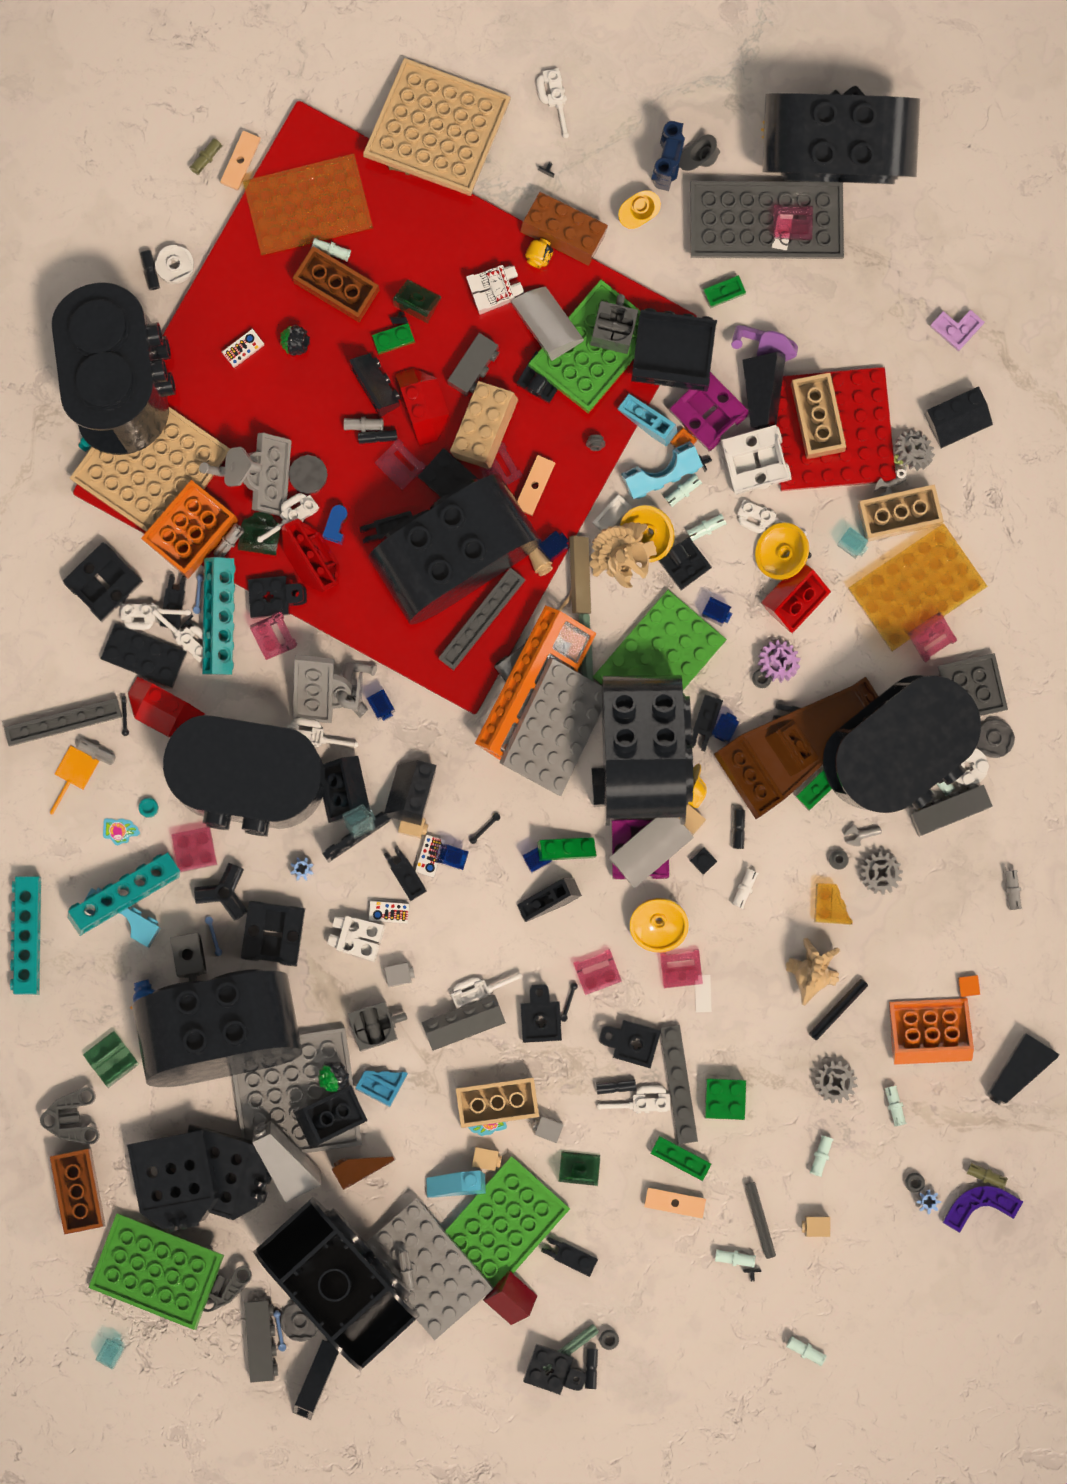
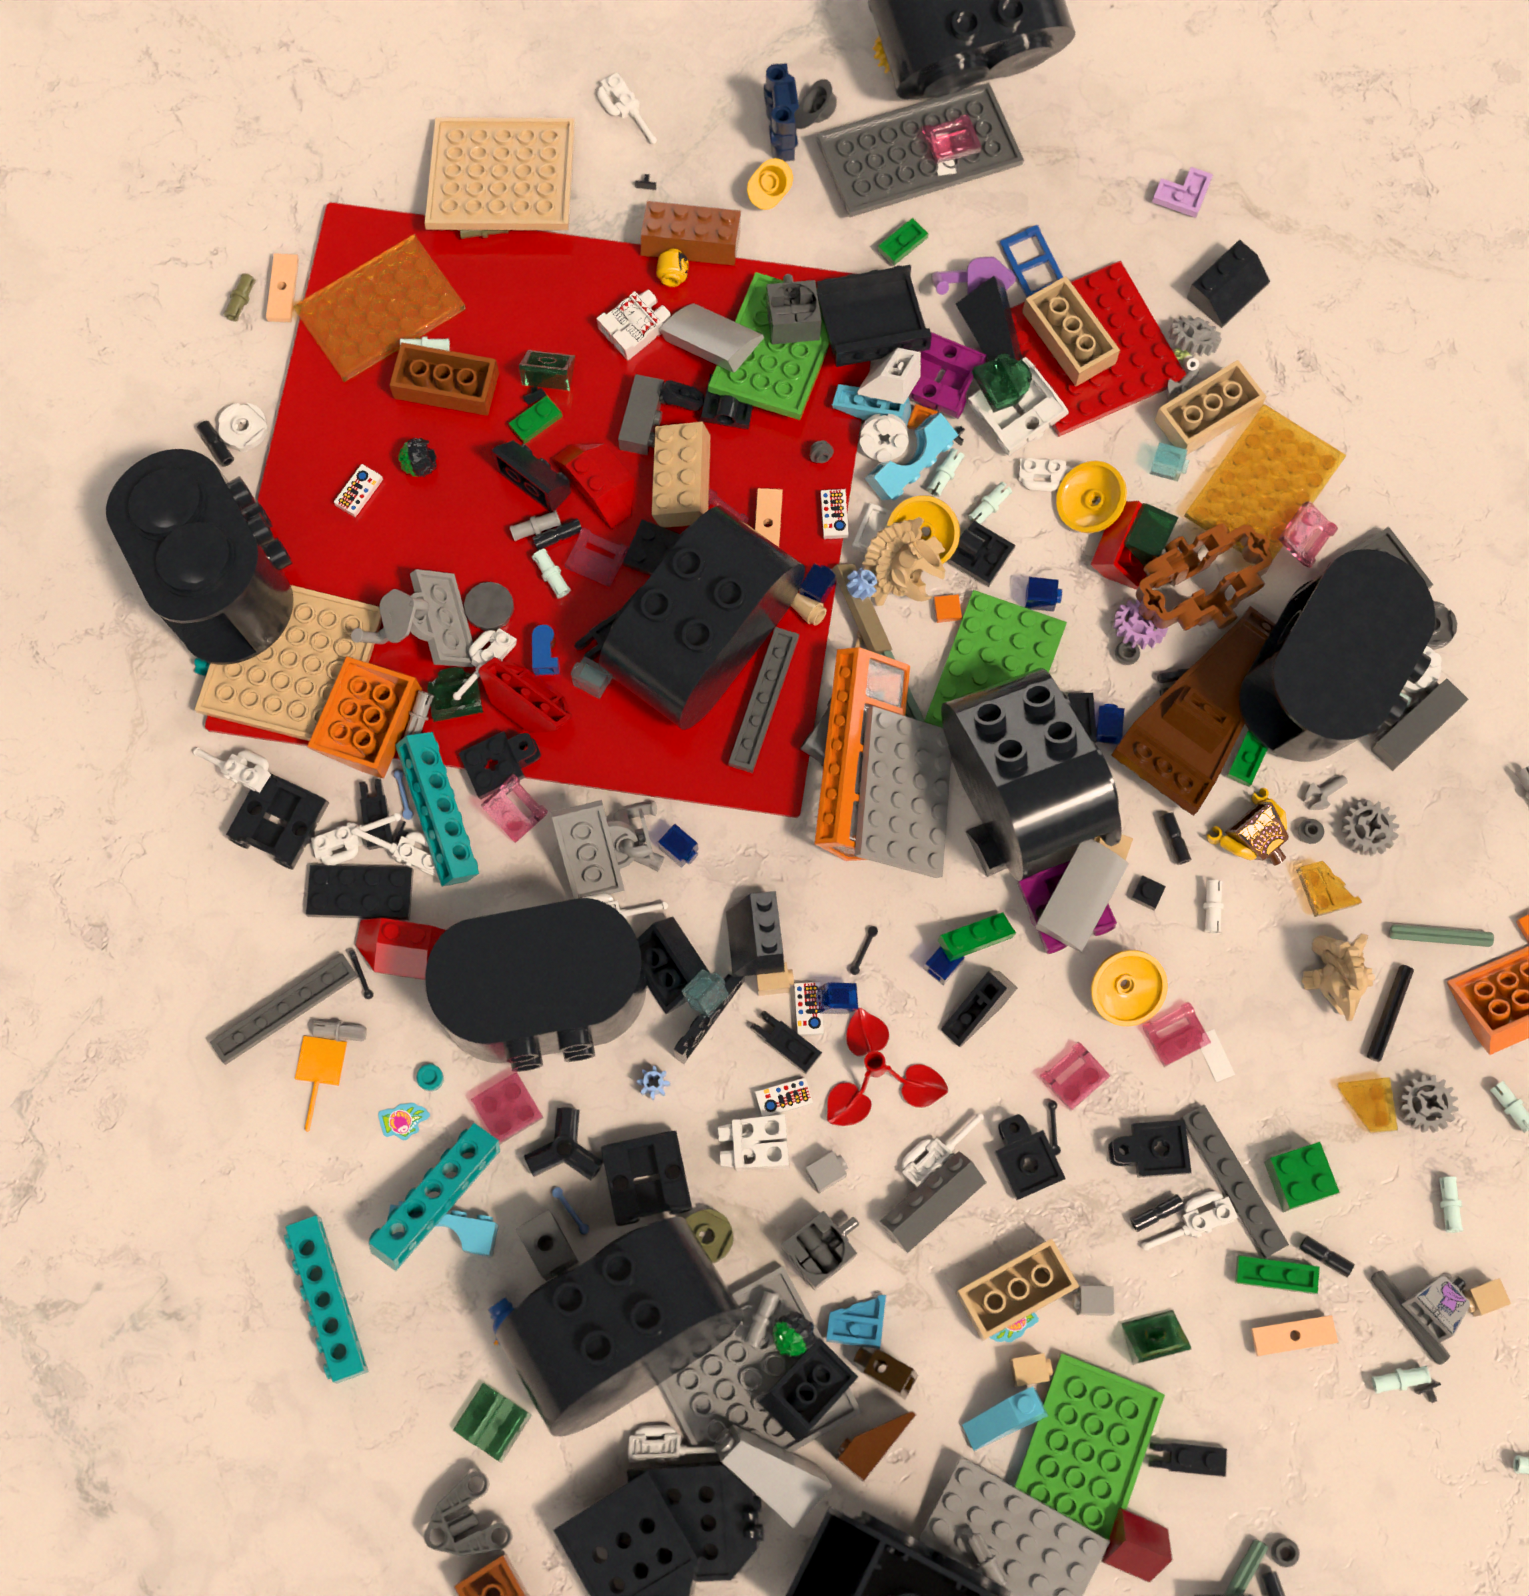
camera: 20 degrees left, 10 degrees down
(84, 533) = (237, 770): none -> white piece
(217, 1120) = (661, 1451): none -> white piece
(311, 987) = (720, 1229): none -> olive plate
(316, 1058) = (762, 1319): none -> light grey pin
(359, 555) = (590, 677): none -> clear light blue brick
(362, 466) = (551, 573): none -> light aqua pin
(392, 1129) = (897, 1376): none -> dark brown torso
(461, 890) = (870, 1035): none -> red plant
(508, 361) = (682, 395): none -> black plate
(585, 558) = (861, 583): none -> light blue gear
(587, 494) = (834, 514): none -> tile
(640, 454) = (884, 450): none -> white plate
(643, 596) = (947, 608): none -> orange tile
(668, 406) = (893, 376): none -> white slope
(723, 1162) = (1324, 1255): none -> black piece
(750, 439) = (1003, 381): none -> clear green slope
(781, 1220) = (1439, 1306): none -> light grey torso
(797, 1067) = (1372, 1103): none -> clear yellow wing
(798, 847) = (1257, 832): none -> torso
(812, 597) = (1150, 533): none -> clear green slope
(815, 319) = (1018, 269): none -> blue window
(825, 628) = (1177, 567): none -> dark orange piece
(899, 968) = (1441, 935): none -> sand green axle

